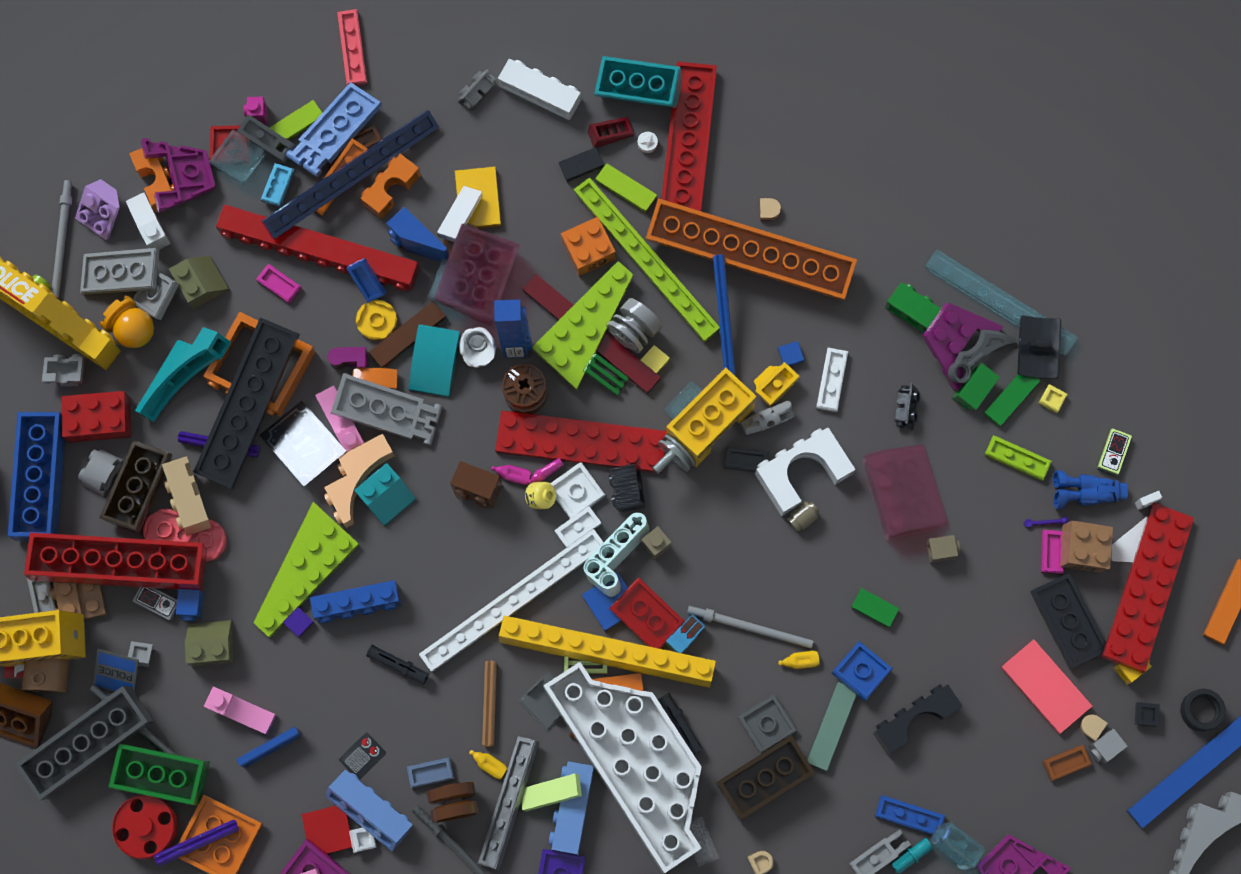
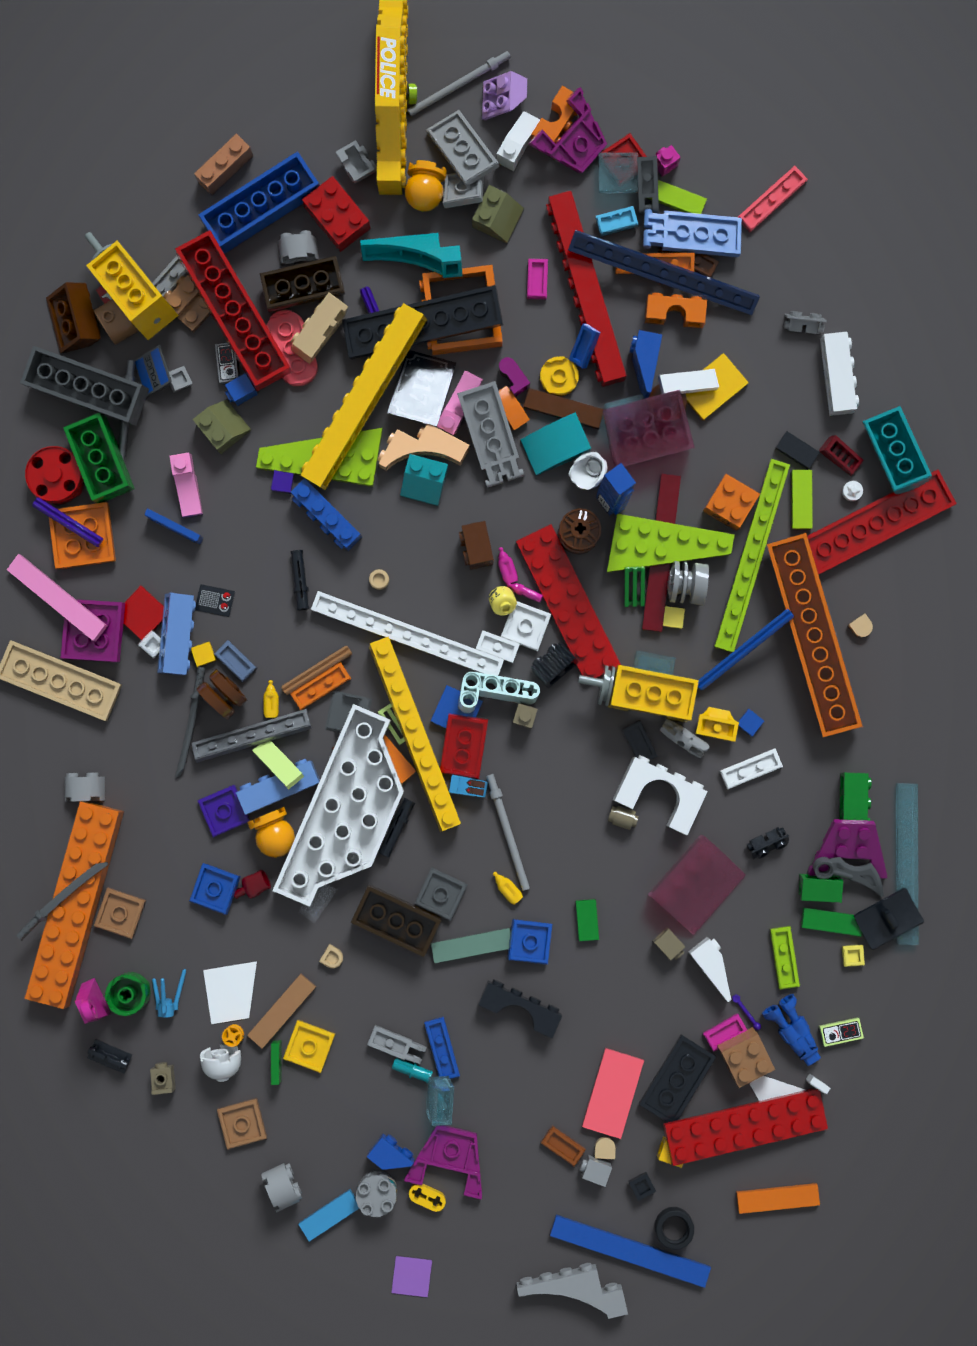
camera: 50 degrees right, 10 degrees up
(275, 496) = (364, 396): none -> yellow brick
(404, 798) = (203, 654): none -> yellow tile
(446, 593) = (379, 579): none -> tan tile
(506, 710) = (320, 686): none -> orange tile
(613, 840) = (273, 834): none -> light orange tile
(982, 523) = (711, 962): none -> white slope

